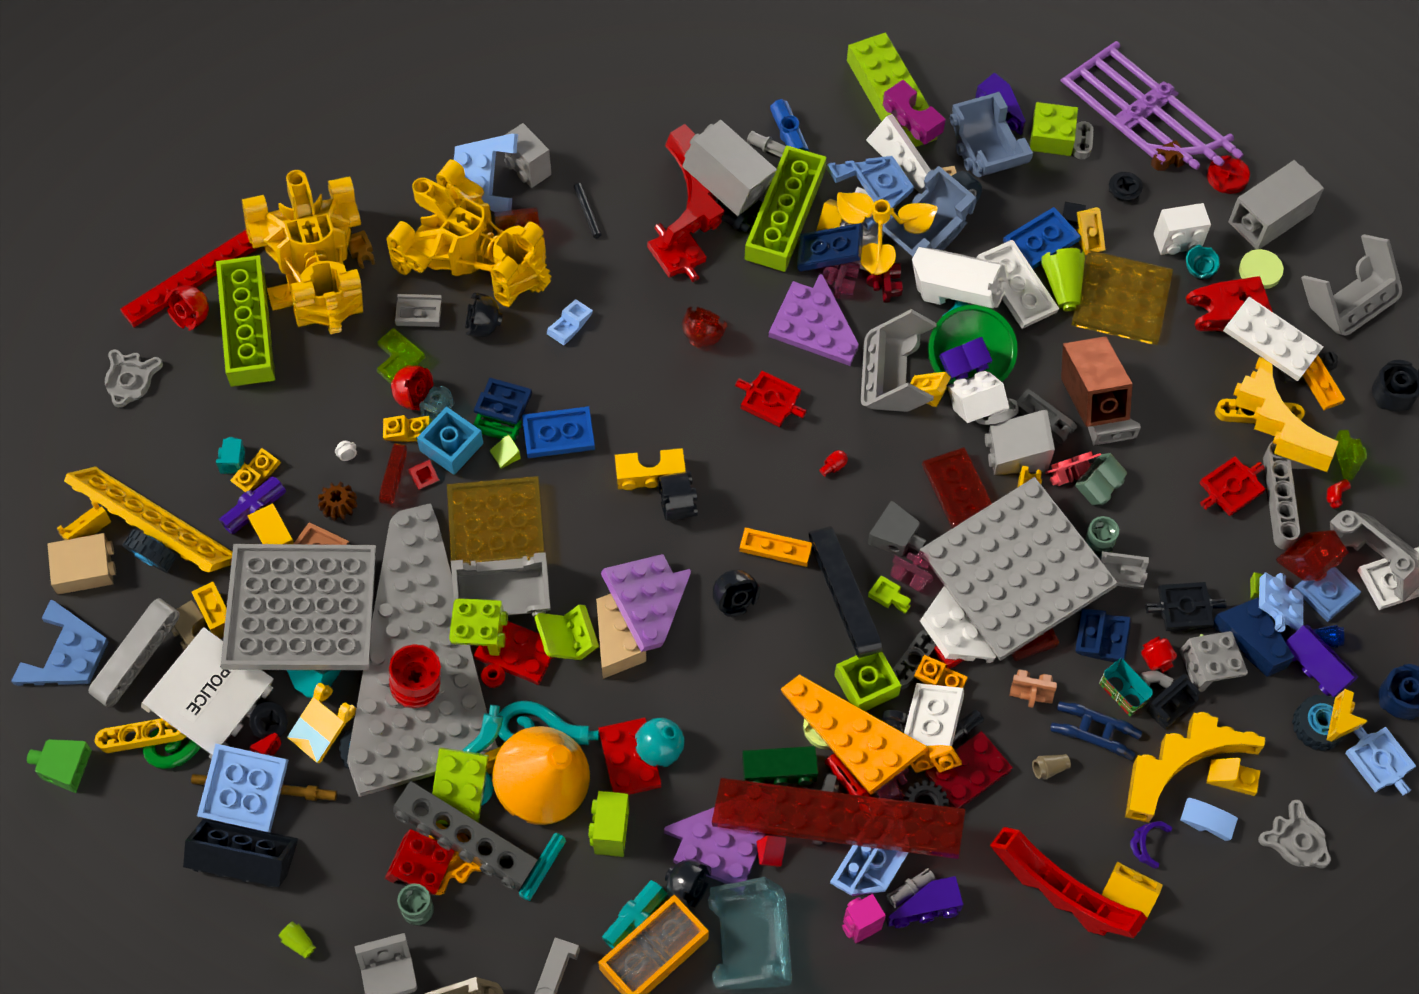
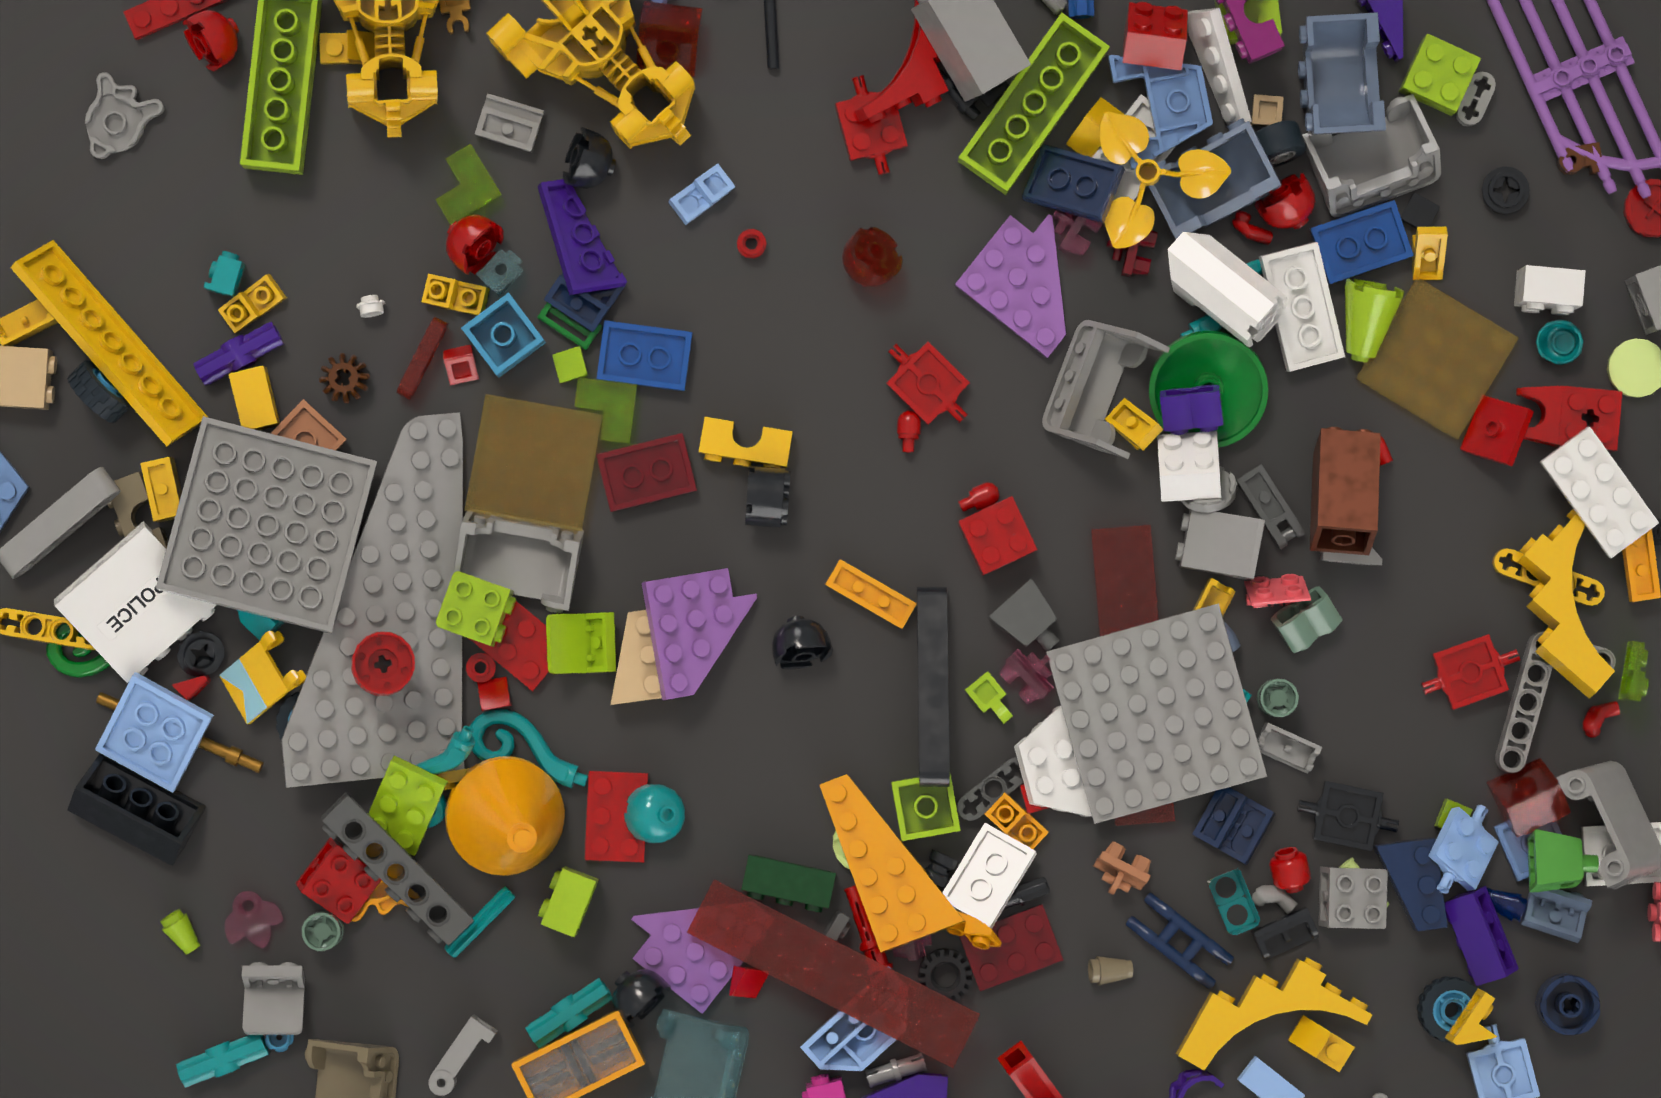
camera: 15 degrees right, 25 degrees up
(356, 919) = (253, 923): none -> clear pink plate
(488, 369) = (577, 242): none -> dark purple wing
(509, 693) = (494, 694): none -> red slope
(546, 467) = (615, 400): none -> clear neon green plate
(582, 508) = (646, 472): none -> dark red plate
(615, 338) = (751, 234): none -> red plate
(767, 432) = (908, 429): none -> red cylinder
(854, 146) = (1155, 35): none -> red brick
(855, 482) = (997, 535): none -> red brick
(956, 247) = (1251, 231): none -> red arm
(983, 225) = (1289, 204): none -> red cylinder
(1035, 188) = (1375, 165): none -> light grey windscreen
(1184, 325) = (1497, 430): none -> red plate
(1353, 589) = (1557, 861): none -> bright green torso
(1367, 629) = (1557, 913): none -> sand blue bracket

